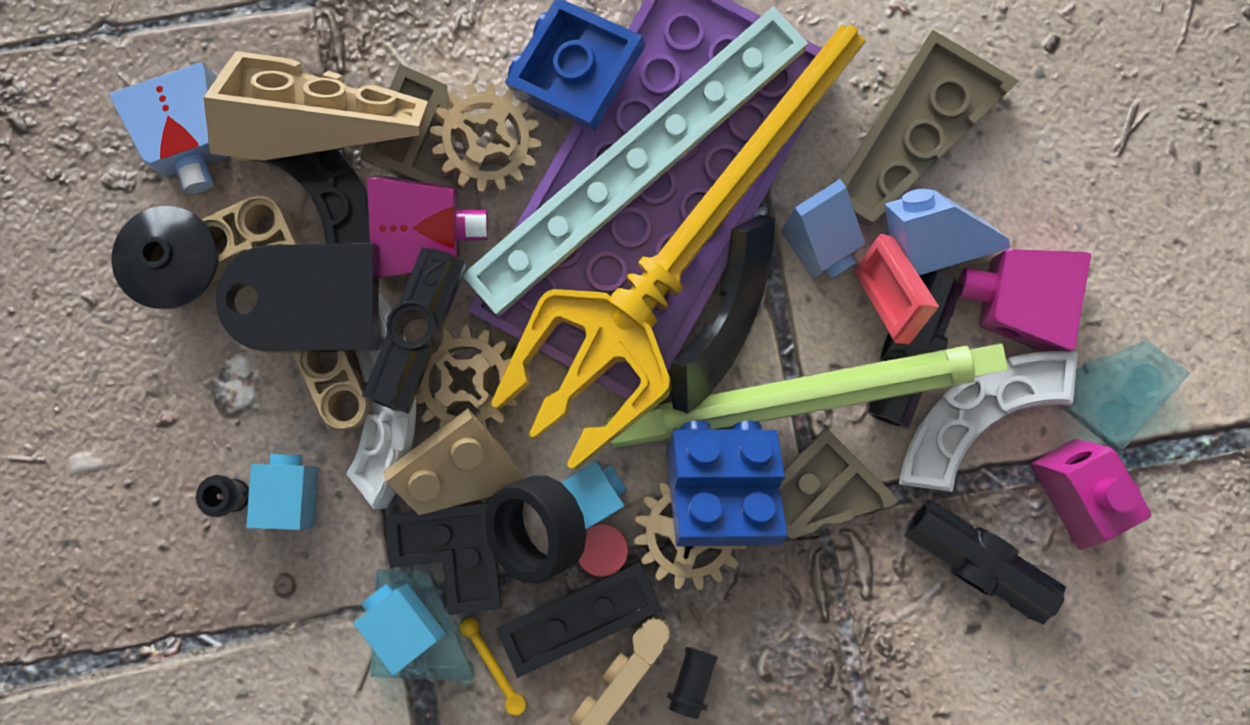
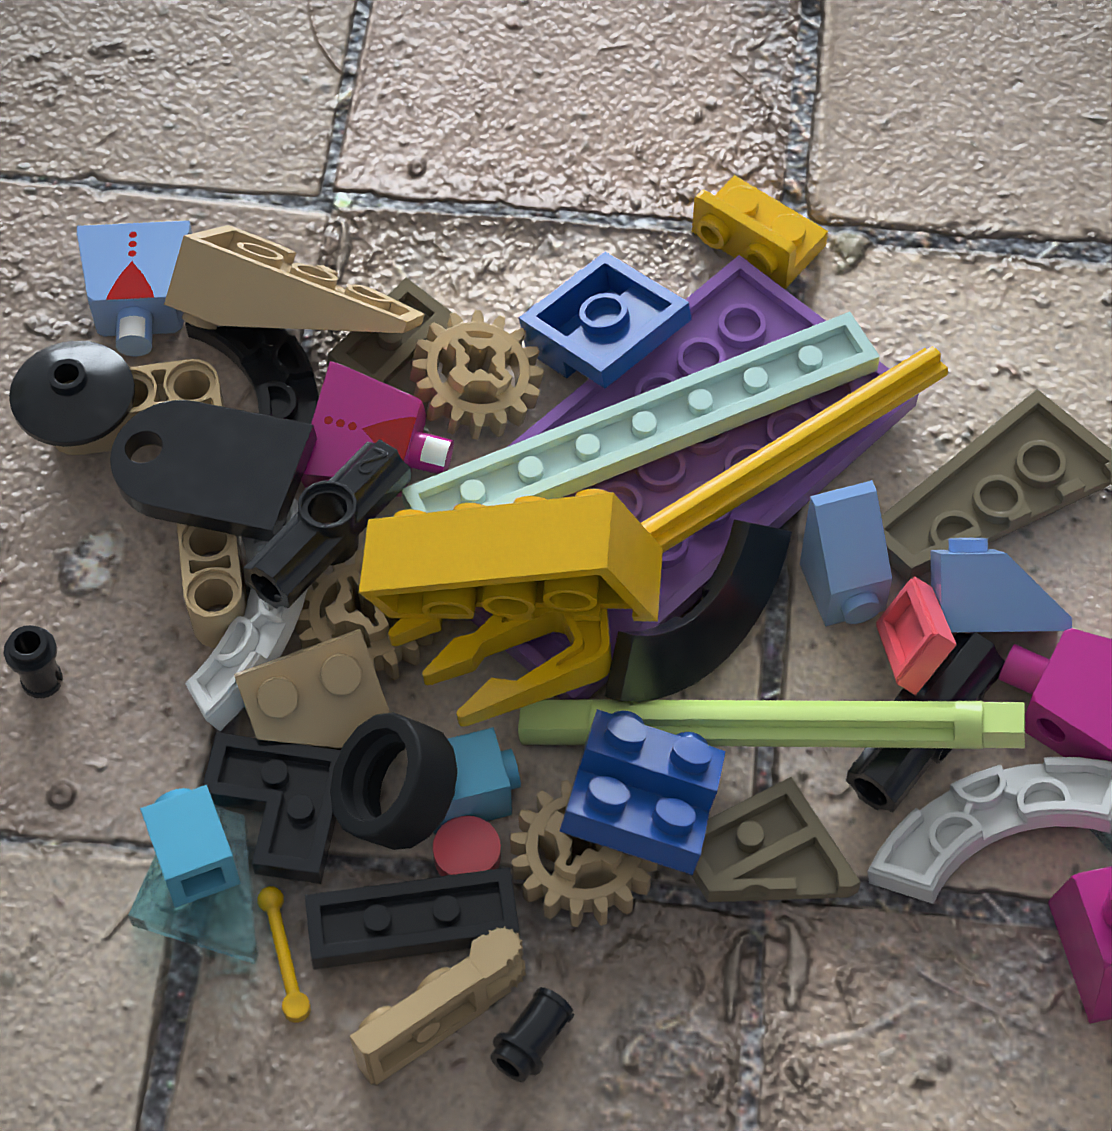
camera: 15 degrees right, 25 degrees down
(282, 494) = (103, 681): medium azure brick -> none
(576, 339) = (512, 559): none -> yellow wedge
(985, 562) = (955, 990): black piece -> none

